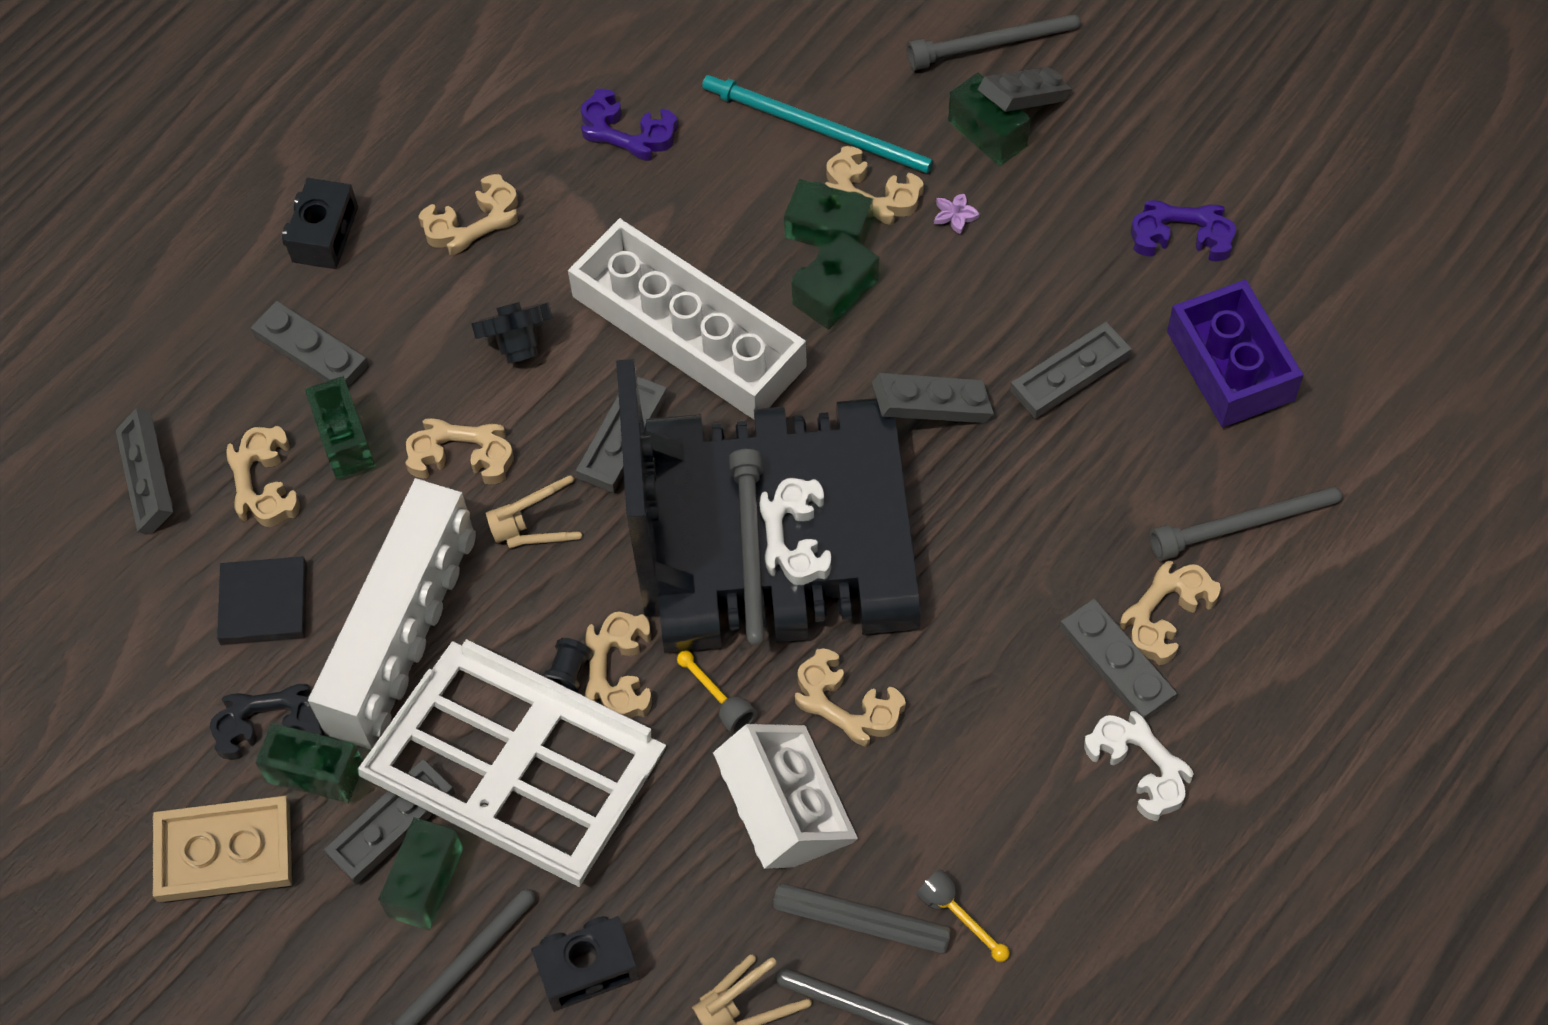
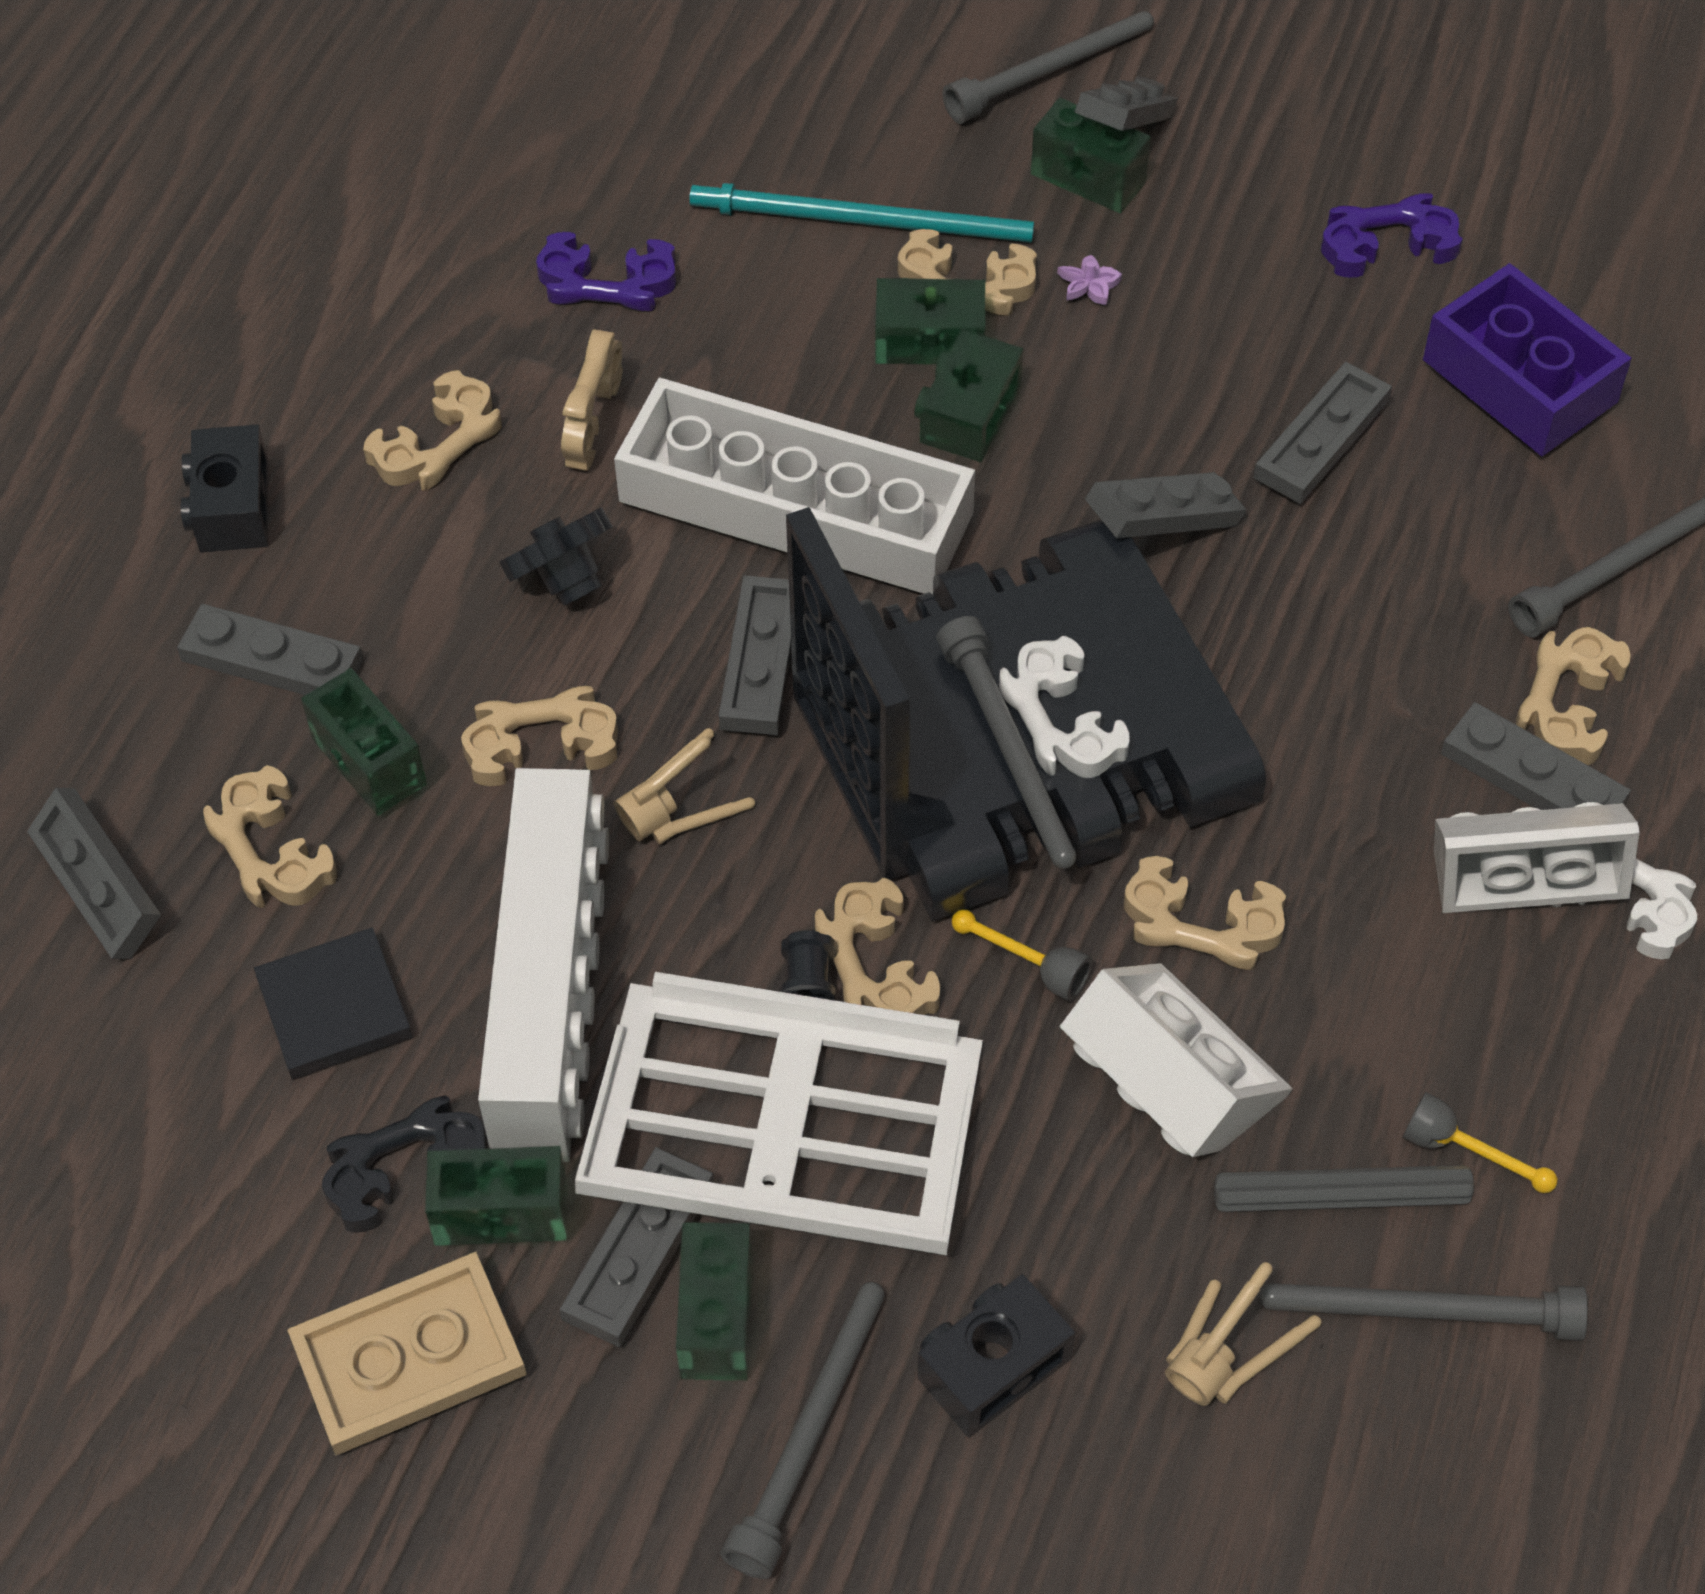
camera: 20 degrees left, 5 degrees down
(590, 201) = (598, 378): none -> tan helmet
(1081, 723) = (1535, 857): none -> white slope

